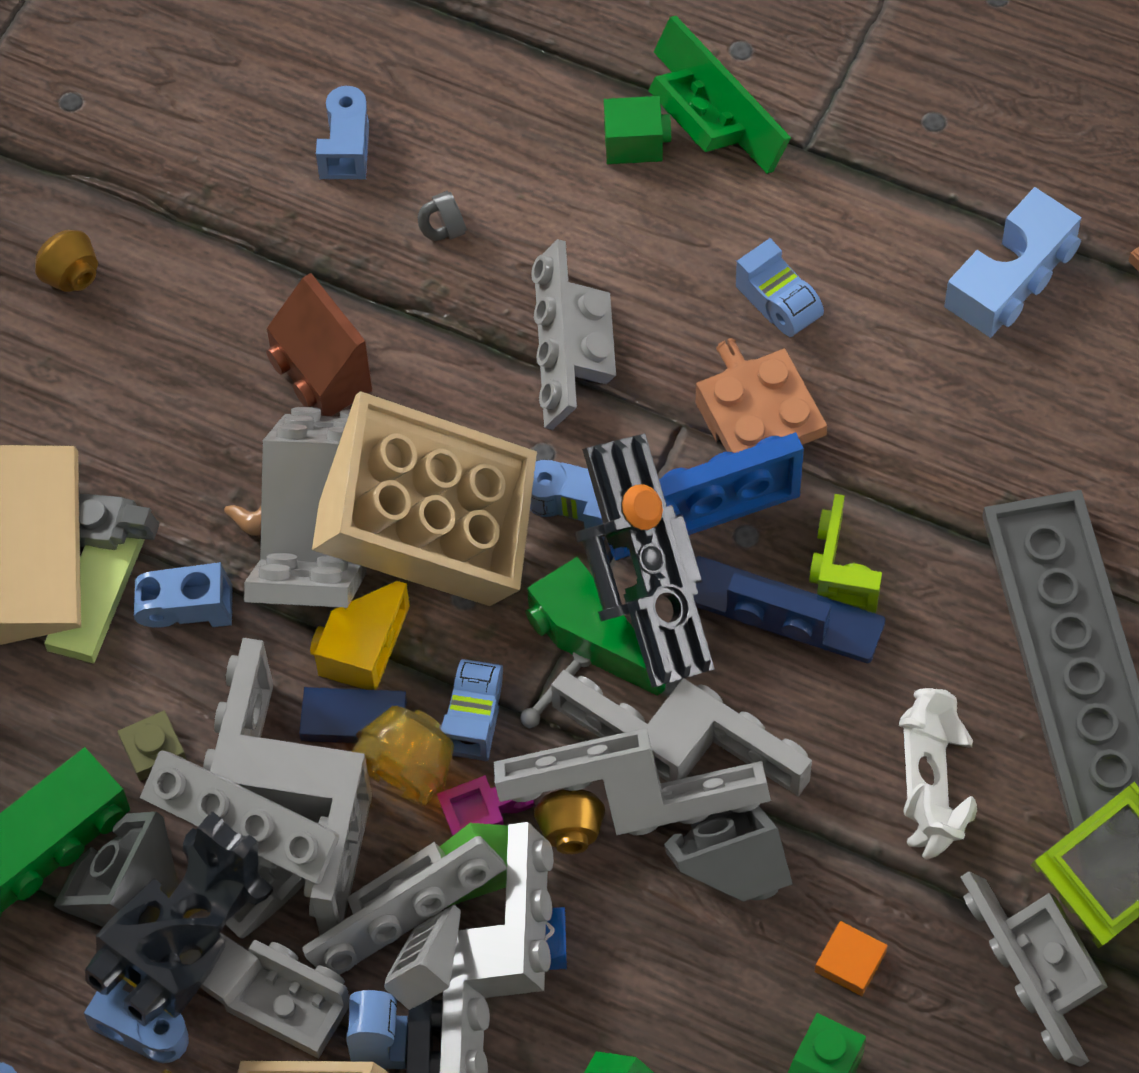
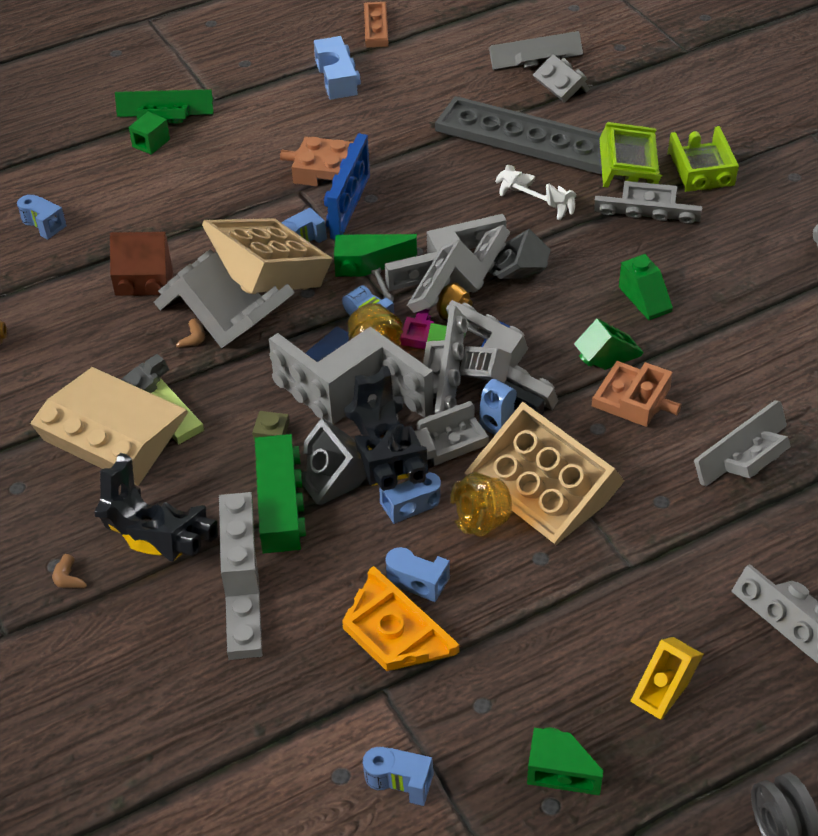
camera: 55 degrees left, 15 degrees down
(184, 596) = (209, 374): medium blue leg -> none
(281, 834) = (338, 389): light grey bracket -> none
(361, 637) = (298, 324): yellow slope -> none
(448, 214) = (120, 204): dark grey tile -> none
(572, 334) = (218, 196): light grey bracket -> none
(661, 553) = (351, 192): black piece -> none
(777, 289) = (273, 131): medium blue leg -> none
(788, 610) = (418, 197): dark blue bracket -> none
(849, 583) = (419, 178): lime bracket -> none
(851, 958) = (595, 257): orange tile -> none

